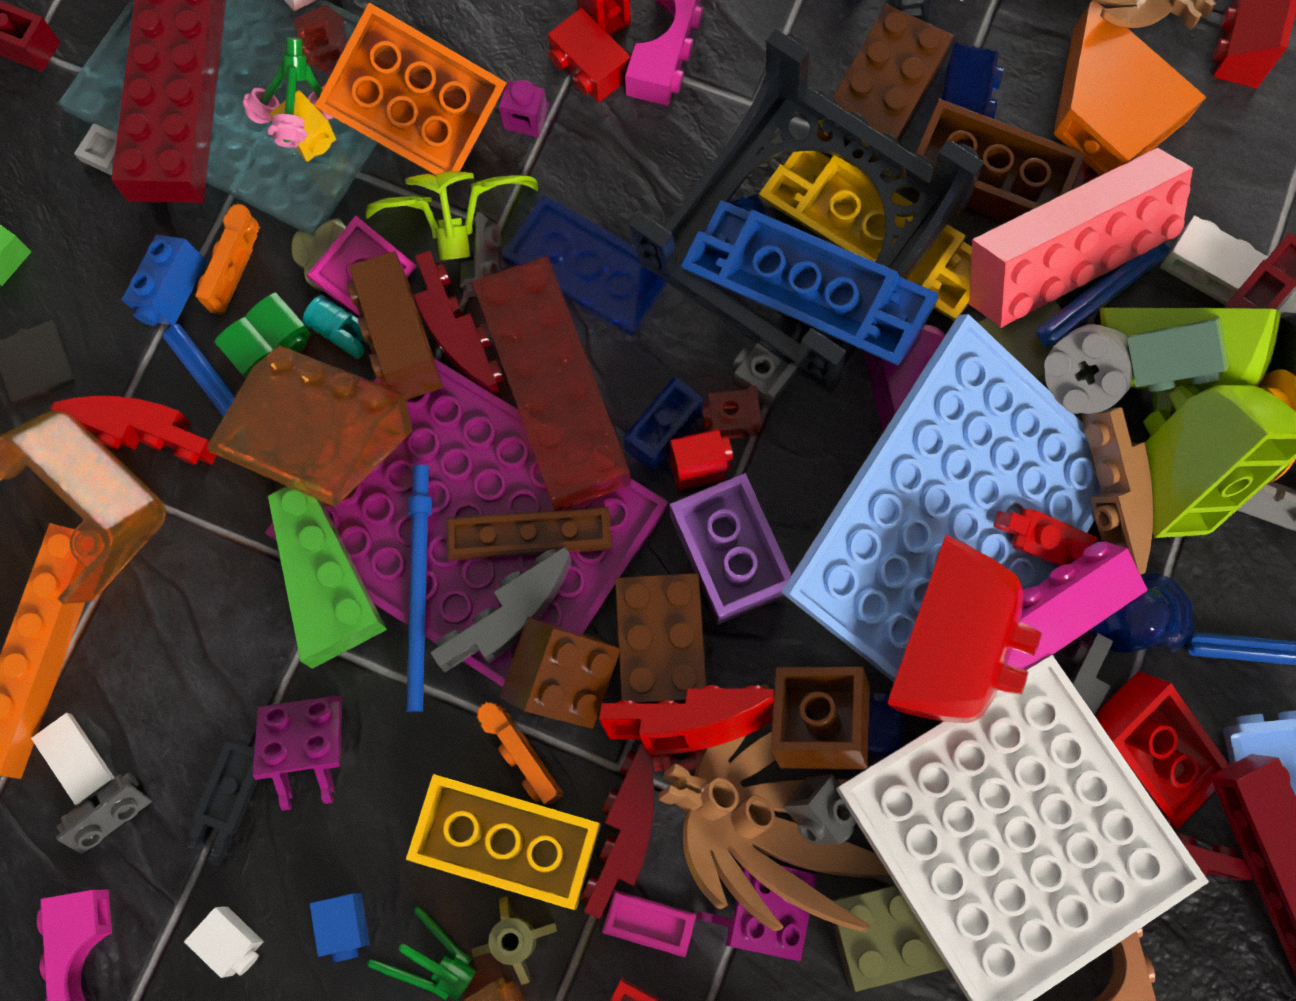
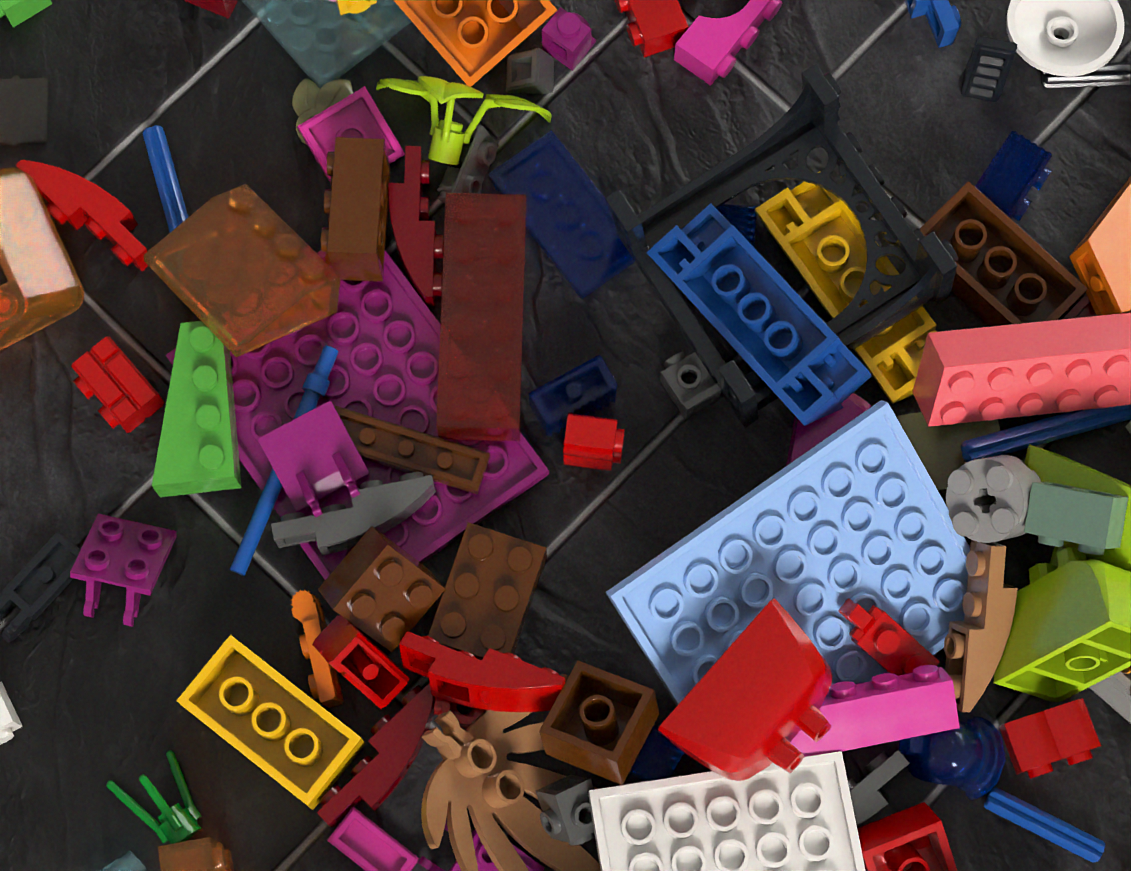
camera: 20 degrees right, 0 degrees up
(164, 280) = (164, 81): blue brick -> none
(228, 260) = (231, 82): orange hinge -> none
(229, 578) = (117, 385): none -> red brick
(260, 332) = (233, 165): green brick -> none
(335, 325) = (305, 182): teal hinge -> none
(340, 926) = (95, 739): blue brick -> none
(445, 573) = (314, 457): none -> magenta plate
(501, 152) = (530, 72): none -> dark grey slope
(526, 935) = (255, 818): olive brick -> none
(567, 749) = (360, 661): none -> red brick
(731, 548) = (586, 535): medium lavender brick -> none
(743, 423) = (649, 423): clear red brick -> none
(892, 72) = (934, 140): reddish brown brick -> none
(1223, 567) = (1050, 737): none -> red brick

